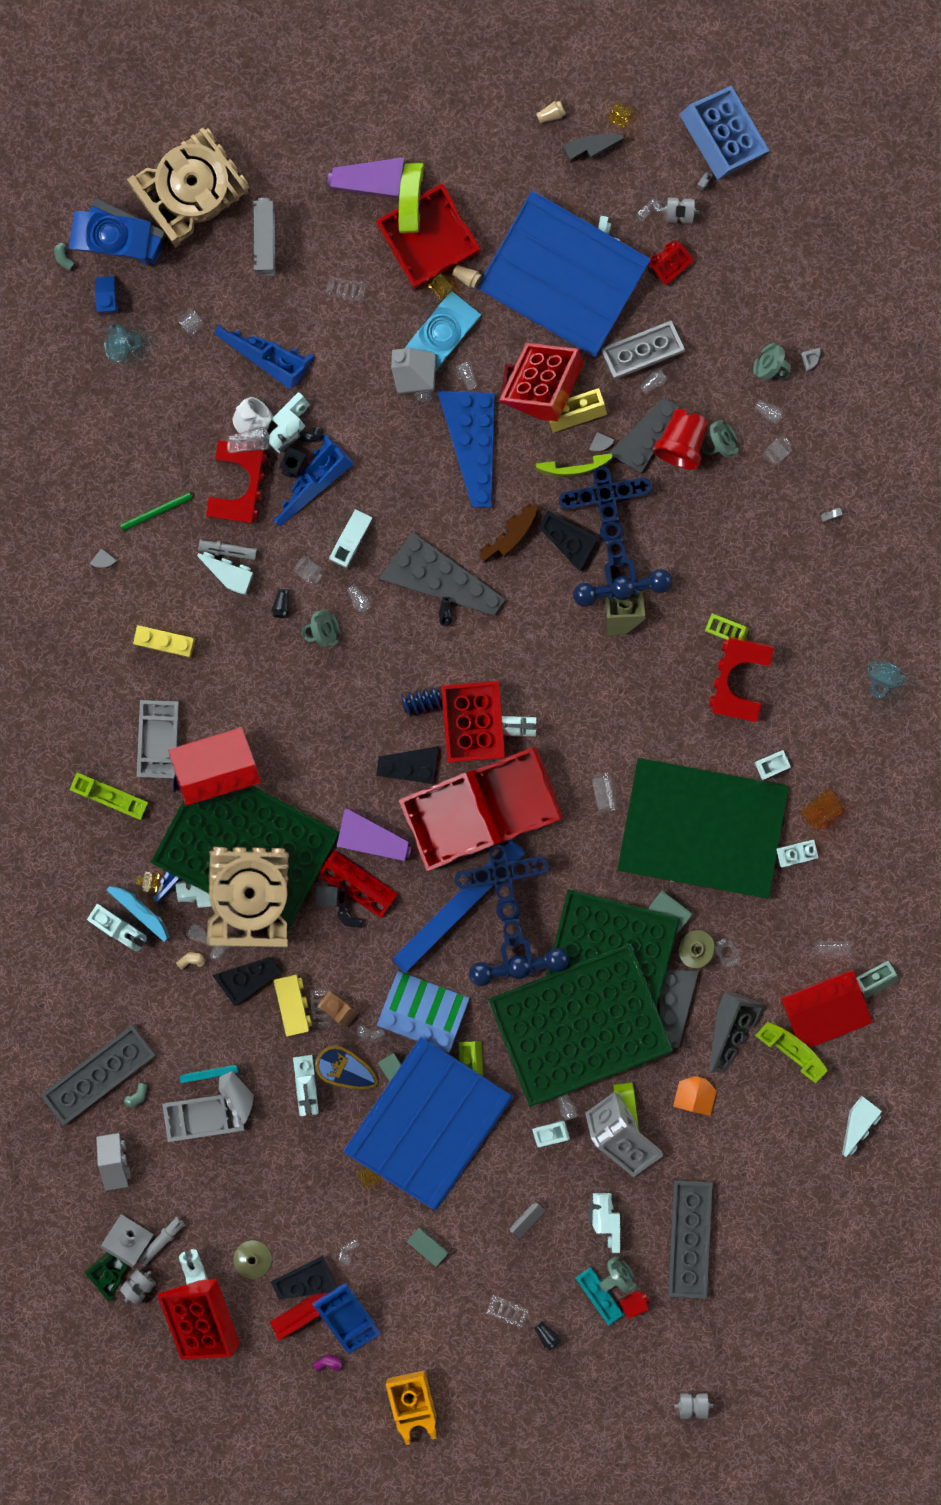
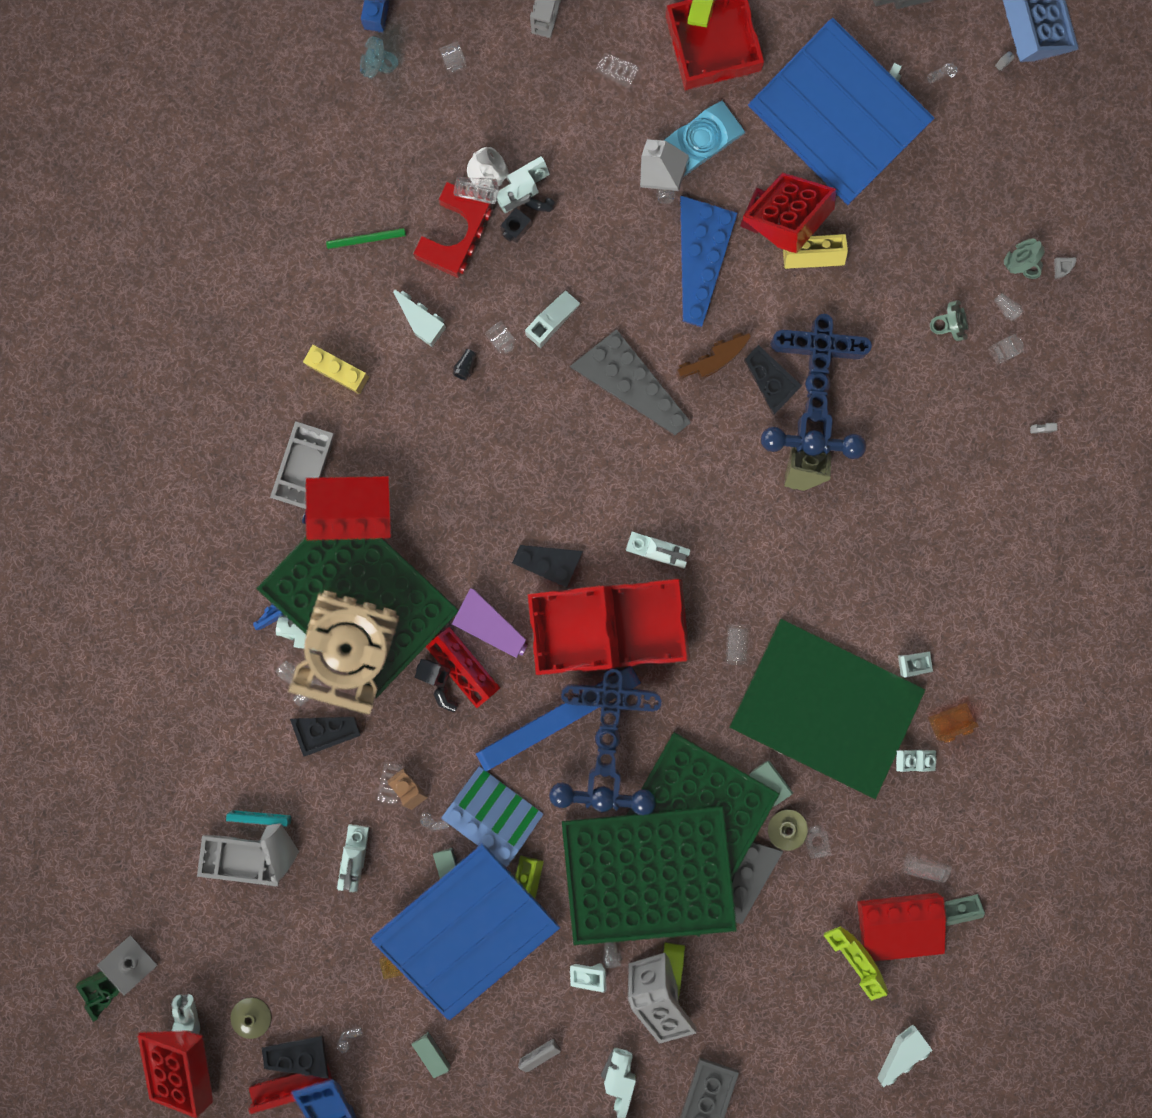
camera: 15 degrees right, 0 degrees up
(98, 1075) = (146, 788): dark grey plate -> none
(103, 560) = (299, 271): light grey tile -> none
(108, 796) = (236, 508): lime slope -> none
(112, 1161) = (133, 882): light grey brick -> none
(117, 928) = (206, 645): light aqua plate -> none
(137, 1287) = (124, 1015): light grey wheel -> none
(138, 1098) = (181, 822): sand green arm -> none
(142, 912) = (234, 635): medium azure slope -> none
(148, 882) = (252, 607): clear yellow tile -> none
(165, 1236) = (169, 970): light grey pin -> none
(191, 958) = (275, 696): tan arm -> none
(227, 549) = (425, 295): light grey pin -> none
(281, 364) = (526, 120): blue wedge -> none
(292, 1005) = (362, 772): light yellow brick -> none
(322, 471) = (545, 242): blue wedge -> none
(323, 628) = (500, 400): sand green tile -> none
(344, 1069) = (396, 852): shield -> none
(359, 600) = (544, 382): clear cone -> none
(422, 701) = (579, 501): dark blue piece -> none
(441, 286) = (713, 91): clear yellow tile -> none
(444, 611) = (626, 418): black arm -> none
(466, 374) = (714, 187): clear cone -> none
(467, 276) = (744, 90): tan cone -> none
(473, 721) = (625, 536): red slope -> none
(550, 469) = (771, 303): lime slope -> none
(600, 442) = (830, 292): light grey tile -> none
(637, 445) = (872, 301): dark grey wing -> none
(642, 350) = (898, 210): light grey slope -> none
(654, 381) = (901, 245): clear cone -> none
(670, 261) = (950, 130): red bracket -> none
(680, 210) = (973, 81): light grey wheel -> none
(682, 440) = (915, 311): red piece -> none
(695, 1095) = (744, 978): orange slope -> none
(733, 1021) = (804, 912): dark grey wedge -> none
(737, 652) = (909, 540): red arch -> none
(744, 630) = (916, 513): lime slope -> none
(885, 675) = (1055, 605): clear light blue tile -> none

